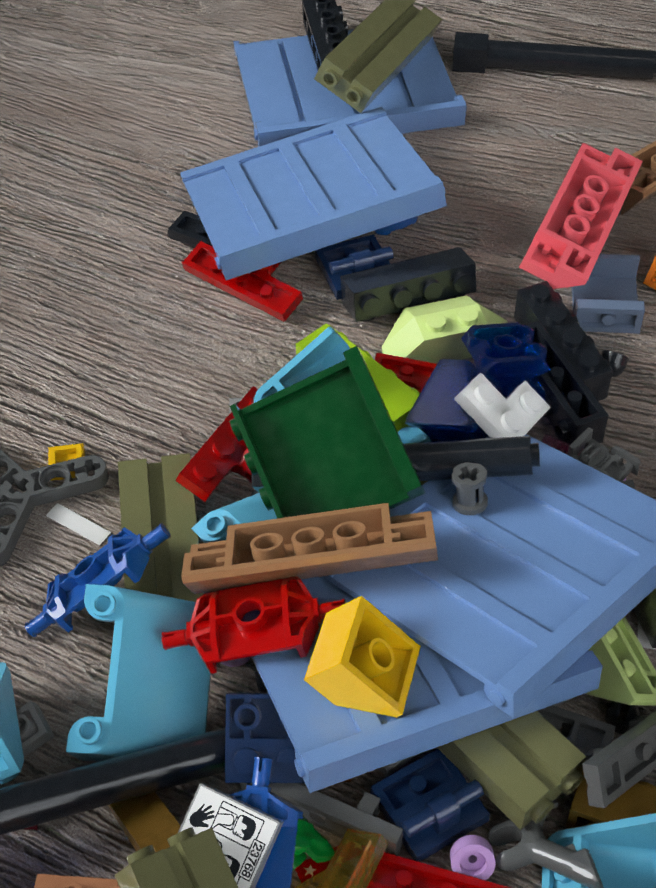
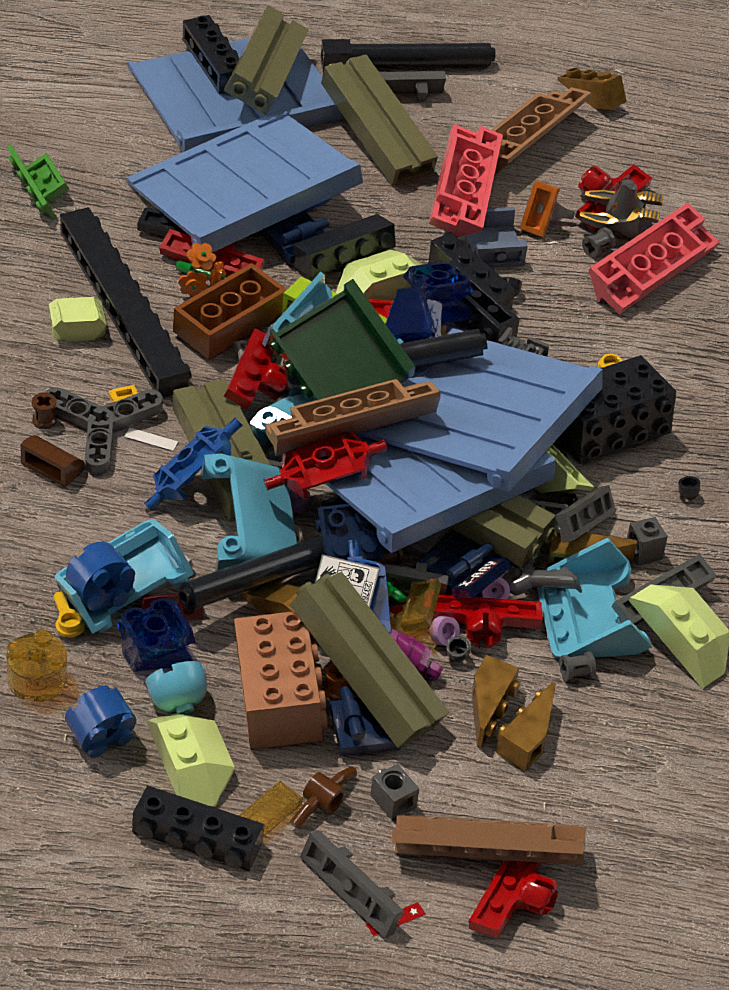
camera: 20 degrees left, 5 degrees down
(51, 344) = (77, 319): none -> yellowish green slope
(78, 167) = (43, 178): none -> bright green bracket
(114, 336) = (124, 302): none -> black brick
(213, 286) = (194, 281): none -> orange plant
(229, 356) = (229, 310): none -> dark orange brick
(363, 660) = (406, 470): yellow slope -> none
(451, 844) = (481, 578): none -> clear blue tile
(469, 488) = (444, 367): dark grey bush -> none
(497, 132) = (379, 120): none -> olive brick
(498, 414) = (446, 320): white plate -> none
(533, 89) = (415, 82): none -> dark grey hinge

